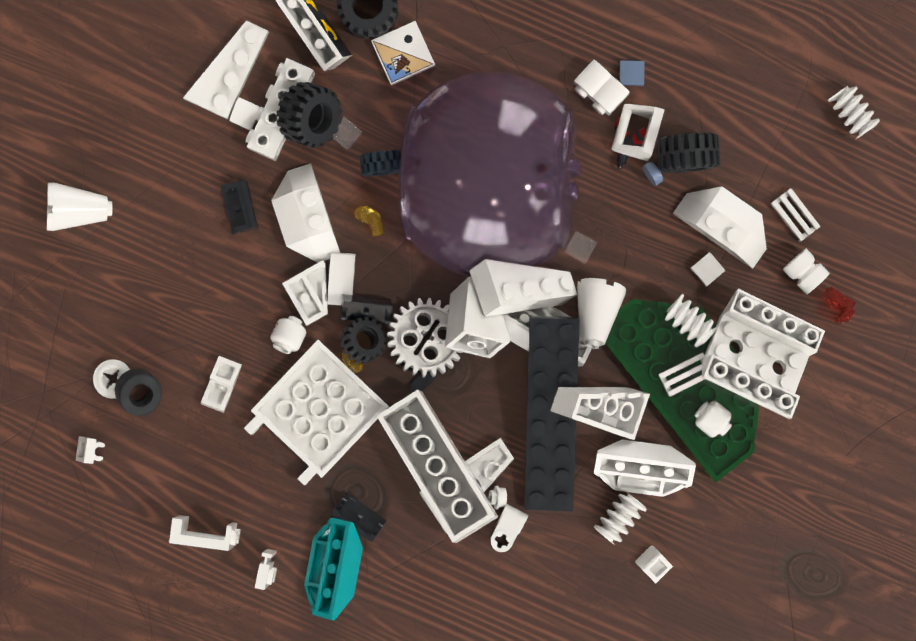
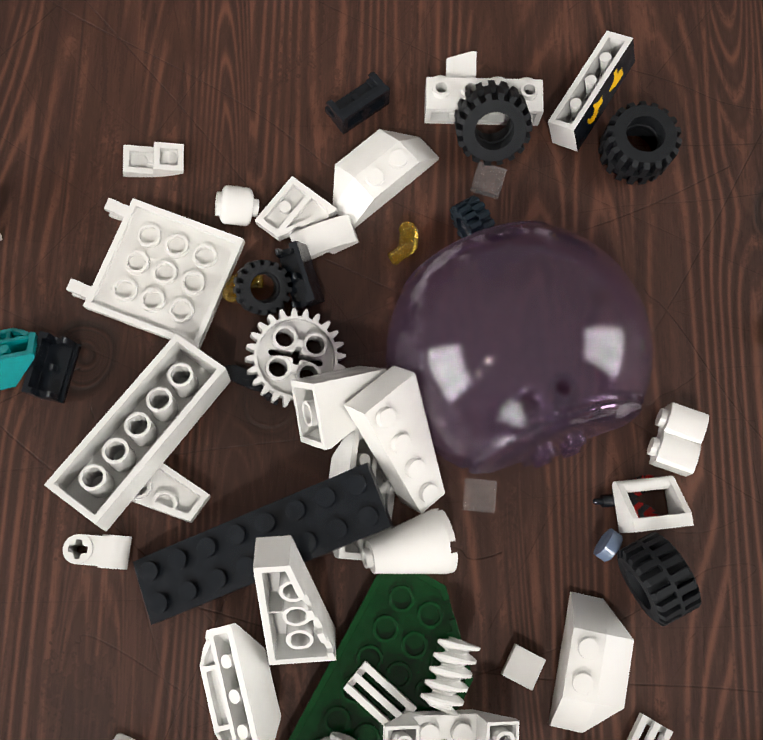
camera: 60 degrees right, 10 degrees down
(86, 450) = (26, 51): white tile -> none
(100, 379) = (109, 41): white gear -> none
(148, 402) = (90, 70): black tyre -> none
(227, 74) = (499, 37): white wing -> none
(403, 53) = (605, 204): tile -> none
(498, 497) = (135, 522): white plate -> none
(620, 517) = (163, 691): white piece -> none
(631, 73) = (712, 469): sand blue tile -> none

